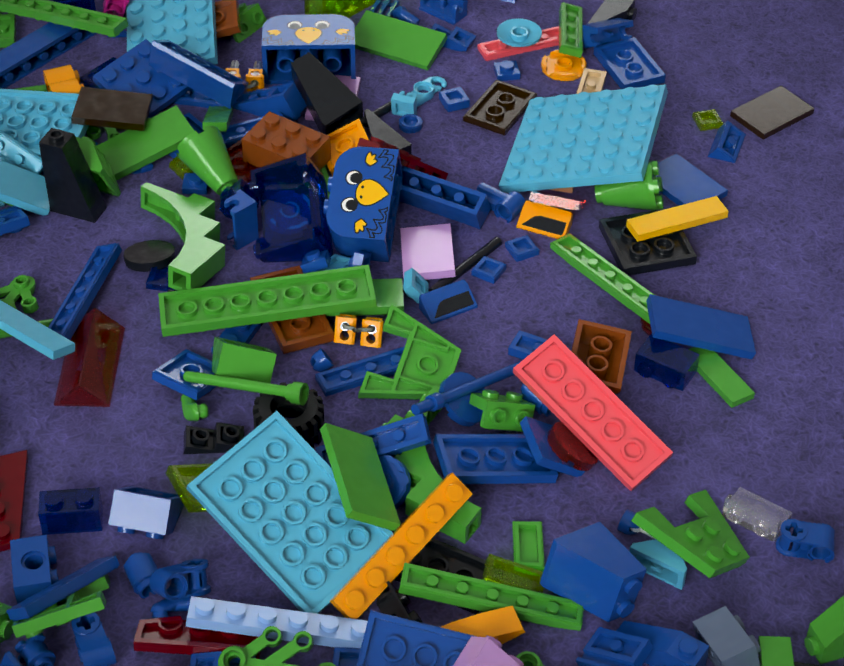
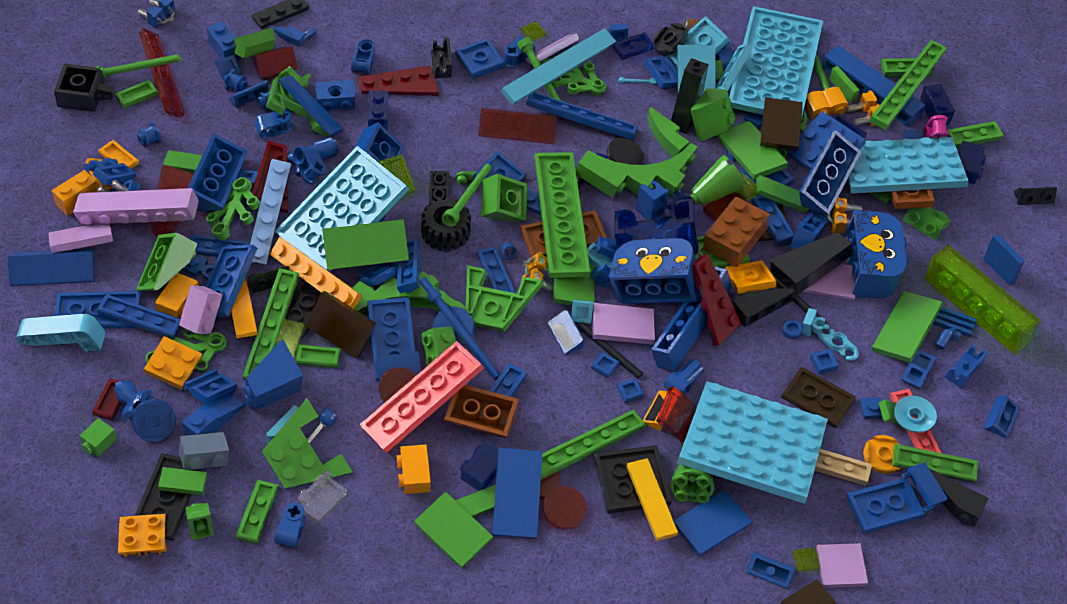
camera: 90 degrees right, 10 degrees up
(10, 238) = (622, 80): none -> medium azure hinge
(30, 71) = (847, 87): none -> bright green tile
(84, 52) = (866, 104): none -> piece
(114, 217) = (666, 132): none -> bright green slope
(488, 508) = (340, 324): none -> dark brown tile
(513, 55) = (887, 410): none -> bright green tile
(689, 425) = (415, 469): none -> light orange brick
(702, 292) = (564, 507): none -> clear red tile
(707, 95) = (841, 565): none -> lavender tile
(762, 386) = (453, 530): none -> bright green tile
(790, 585) = (257, 511): none -> bright green tile

